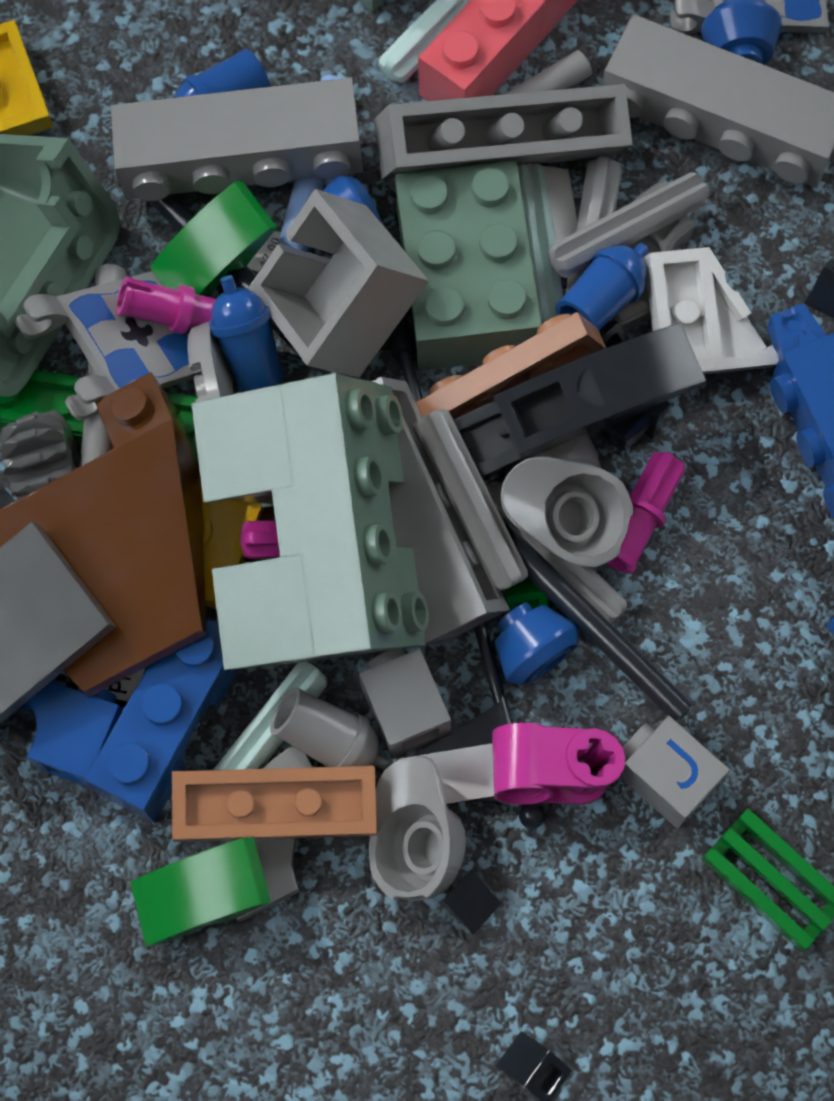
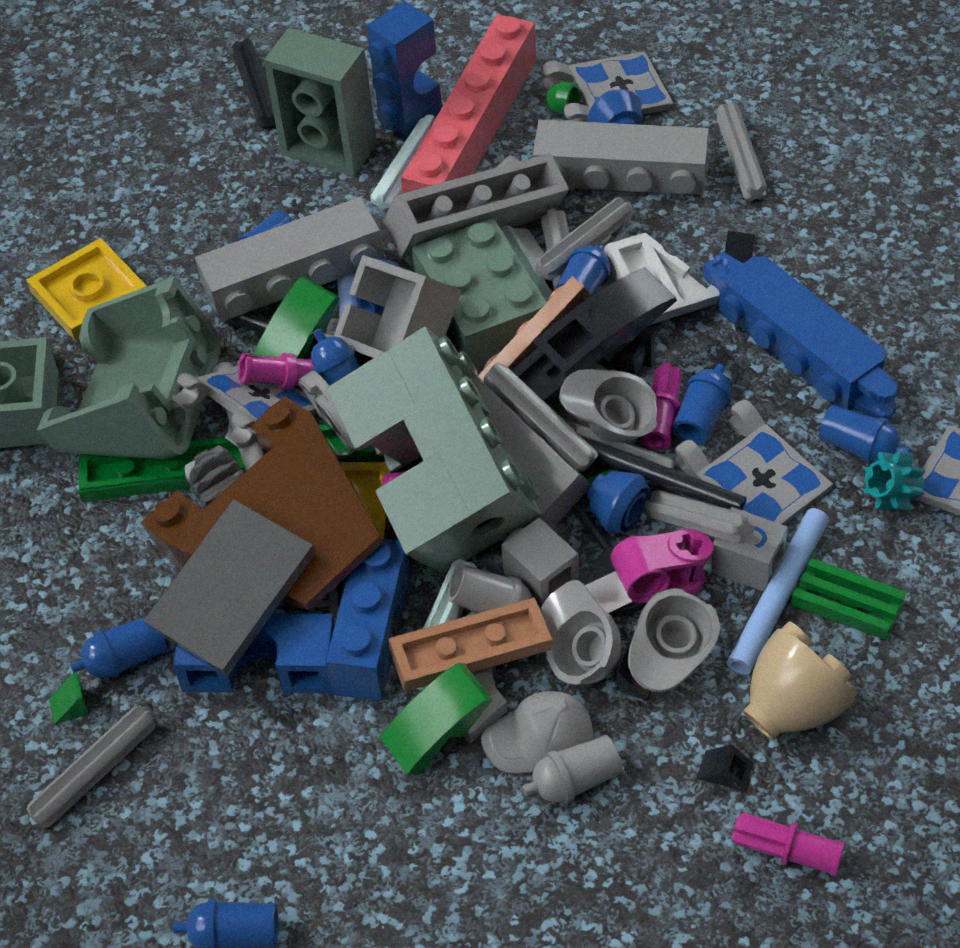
camera: 15 degrees left, 20 degrees down
(324, 942) = (536, 727): none -> light grey piece
(344, 1017) = (574, 770): none -> light grey piece
(526, 881) = (671, 639): none -> light grey piece
(623, 716) = (699, 516): none -> light grey axle
(654, 1004) = (795, 686): none -> tan piece
(691, 838) = (778, 592): none -> light blue piece
(695, 529) = (702, 405): none -> blue piece
(728, 657) = (760, 467): none -> light grey flag

